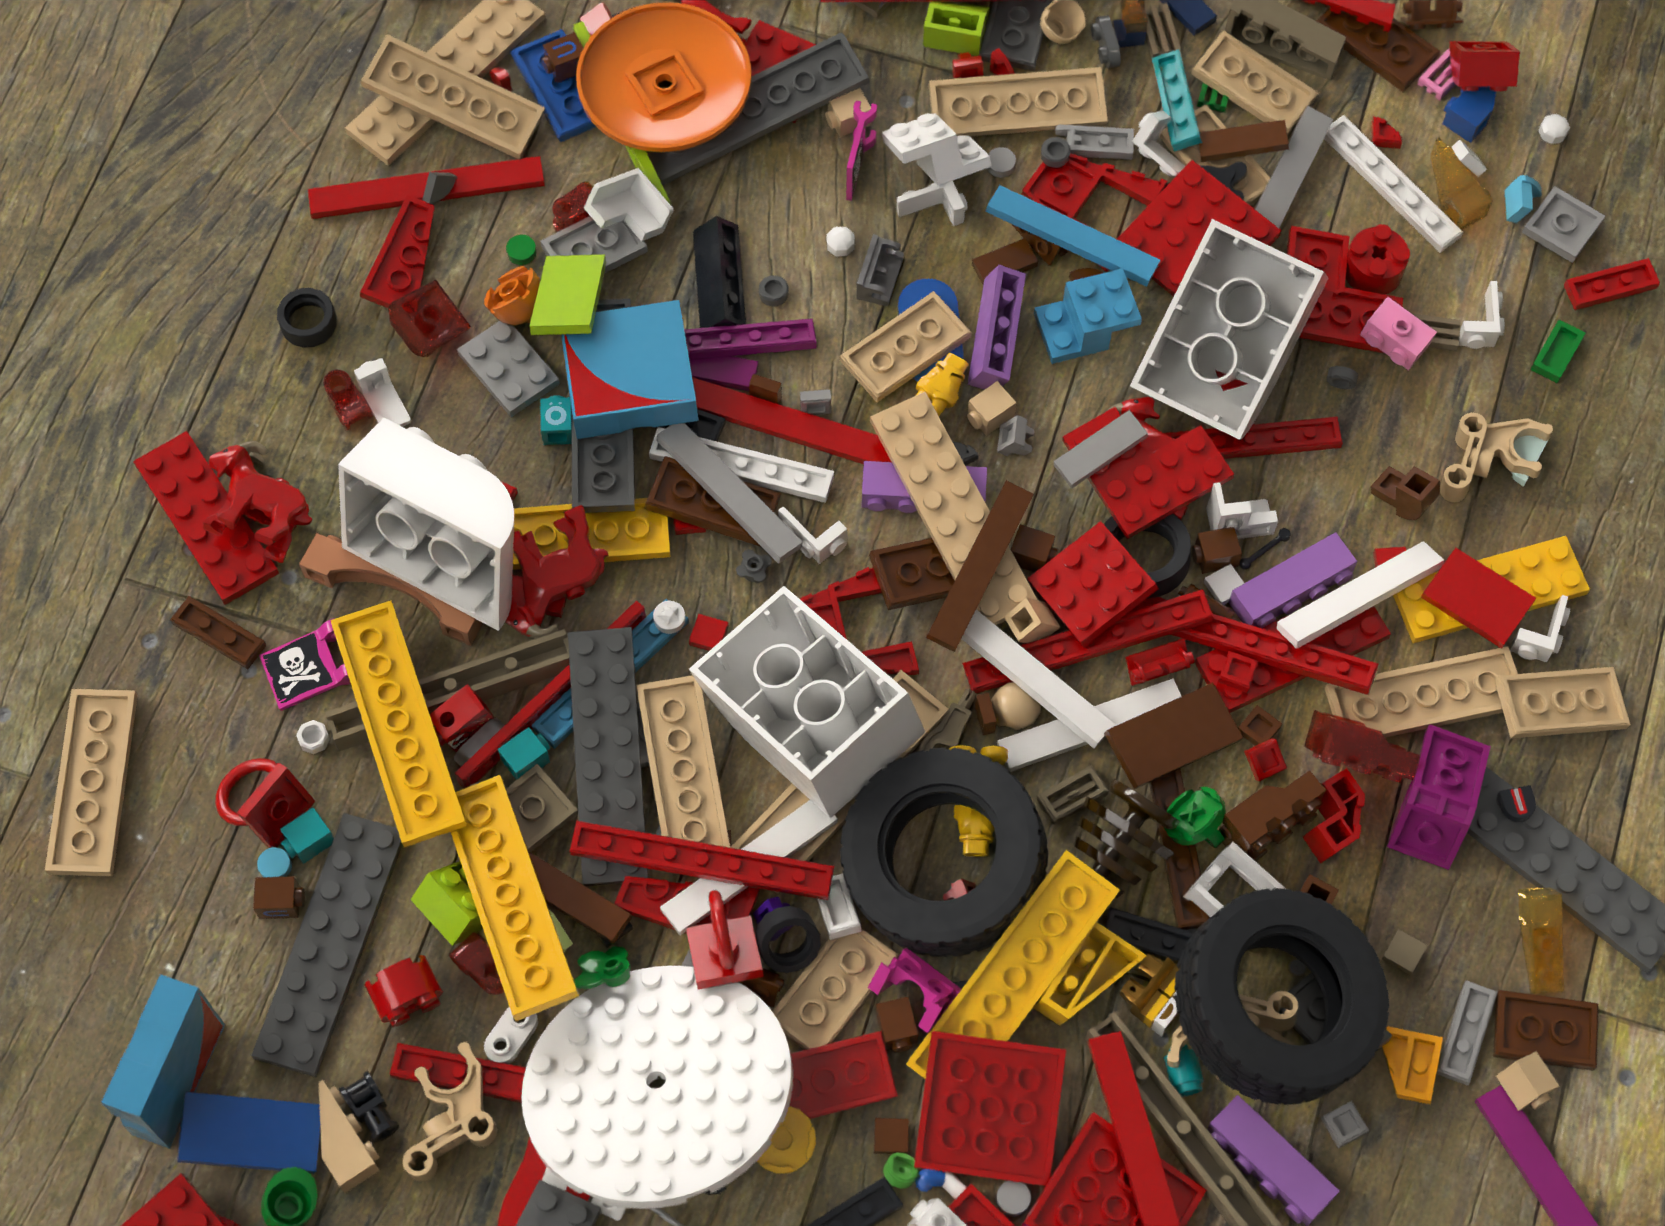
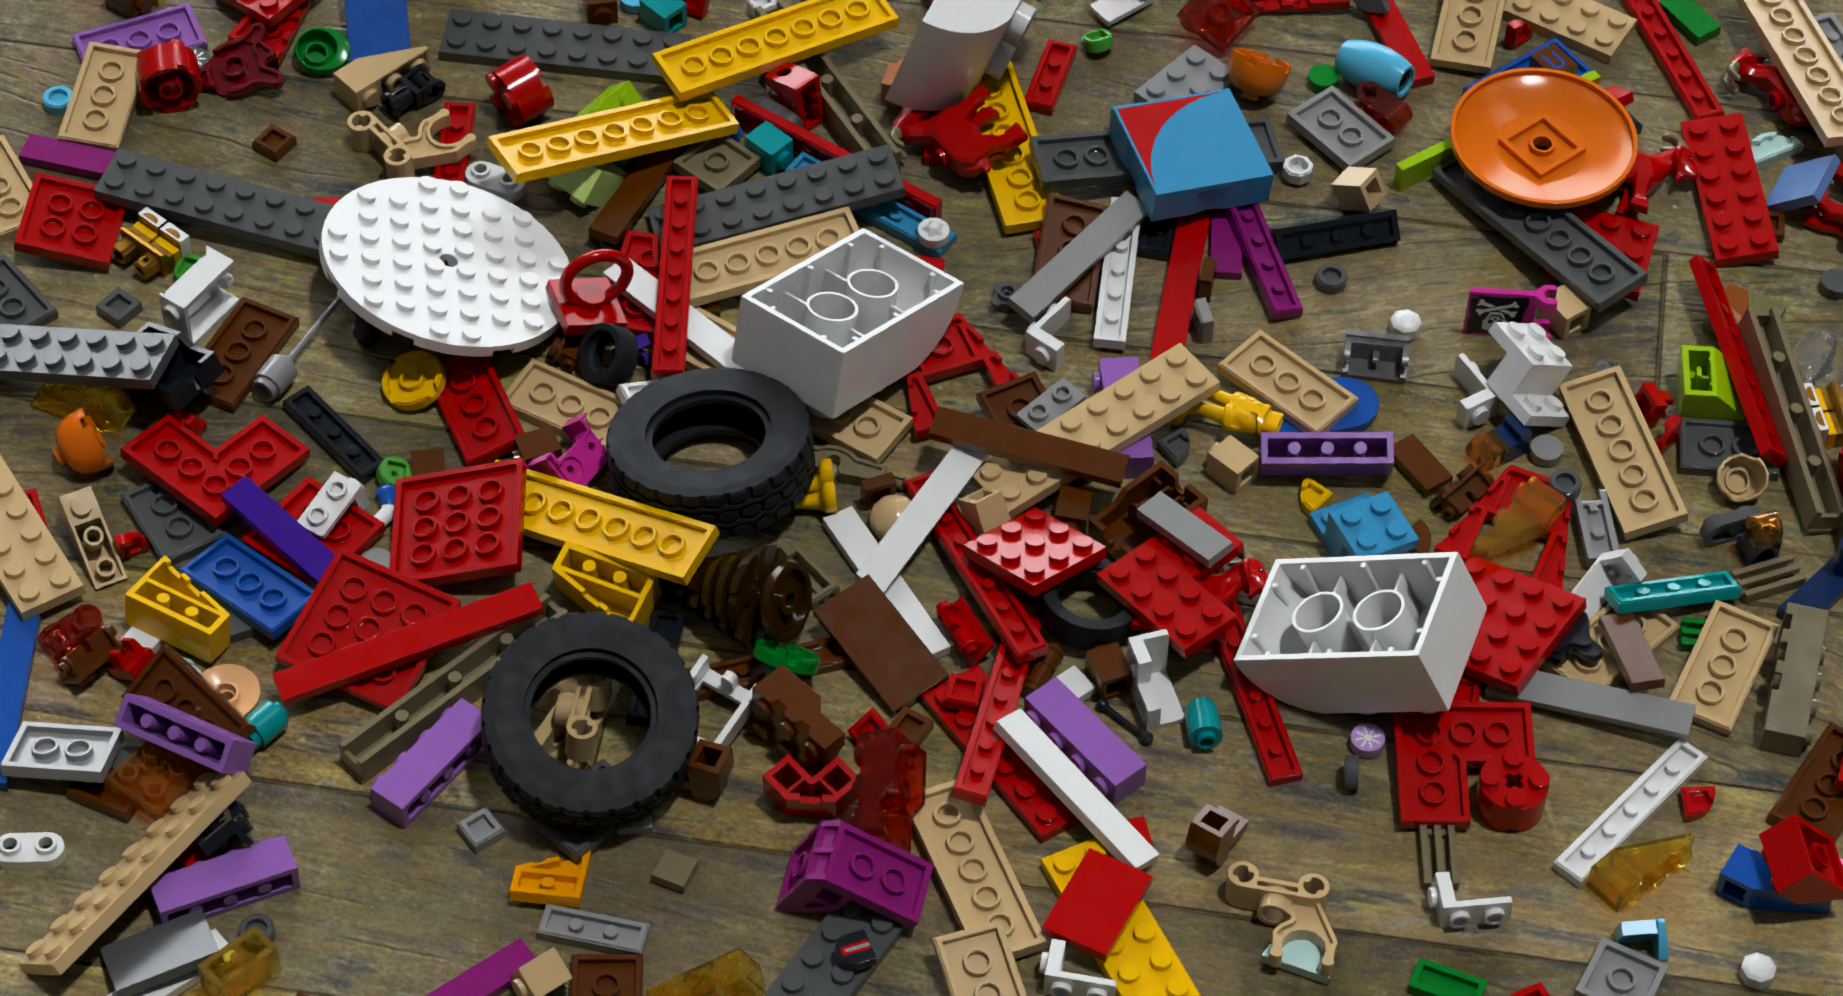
camera: 80 degrees right, 15 degrees down
(437, 430) = (1097, 41): none -> bright green tile
(529, 200) = (1374, 62): none -> medium azure piece
(568, 295) = (1260, 95): lime tile -> none
(603, 967) = (563, 230): green plate -> none
(632, 200) = (1390, 130): white panel -> none
(637, 290) = (1297, 169): none -> white tile
(679, 243) = (1359, 189): none -> tan brick
(914, 543) = (1050, 405): none -> light grey bracket
(985, 185) = (1500, 444): none -> leg
(1013, 436) = (1207, 485): light grey tile -> none
(1030, 353) = (1313, 496): none -> yellow tile
(1054, 502) = (1118, 523): none -> reddish brown piece
(1072, 235) = (1460, 487): dark azure tile -> none
(1096, 187) = (1527, 518): none -> clear yellow slope
(1281, 484) = (1203, 723): none -> teal brick
(1303, 361) = (1367, 740): none -> lavender tile
(1398, 333) = (1412, 806): bright pink brick -> none
(1469, 158) = (1679, 875): white tile -> none

